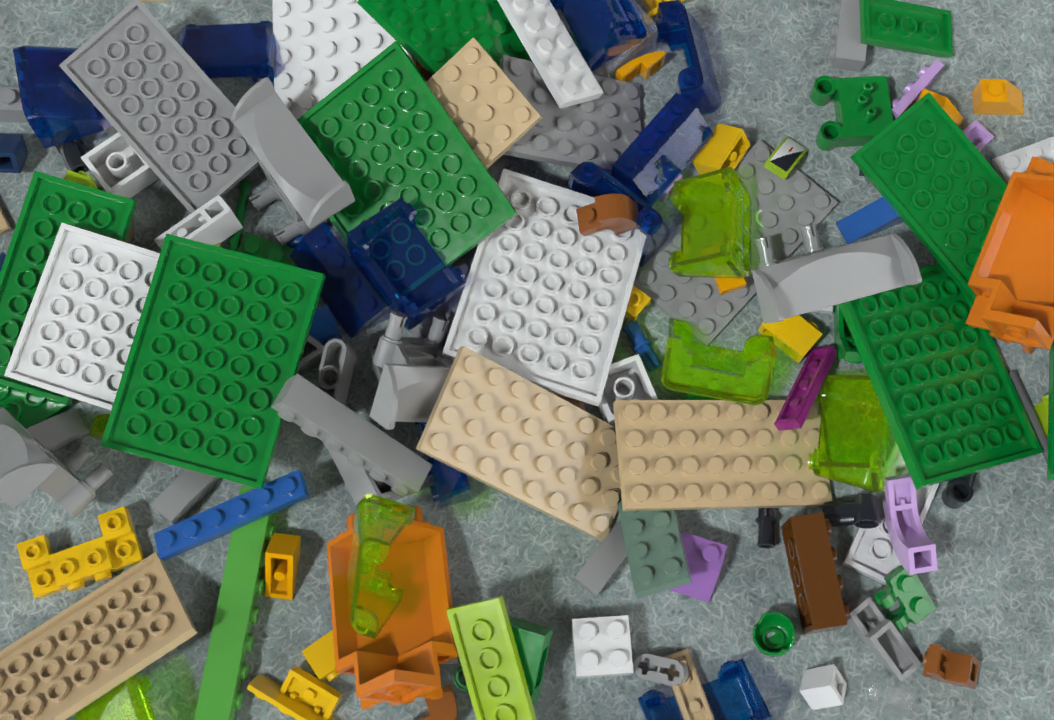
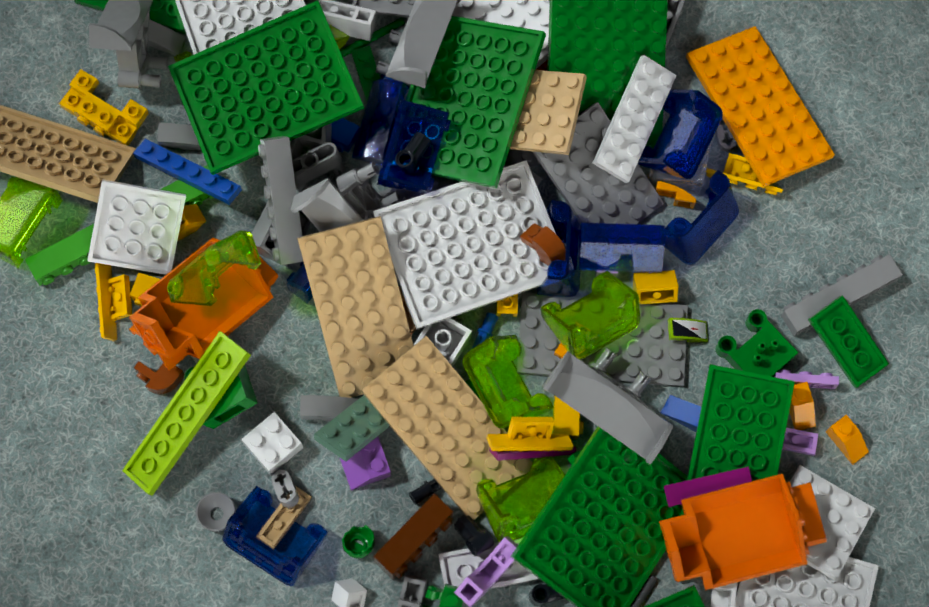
camera: 50 degrees right, 0 degrees up
(251, 615) = (136, 227): none -> white plate
(410, 264) = (414, 150): none -> black piece
(797, 379) = (530, 435): none -> yellow bracket
(966, 253) = (699, 486): none -> magenta tile

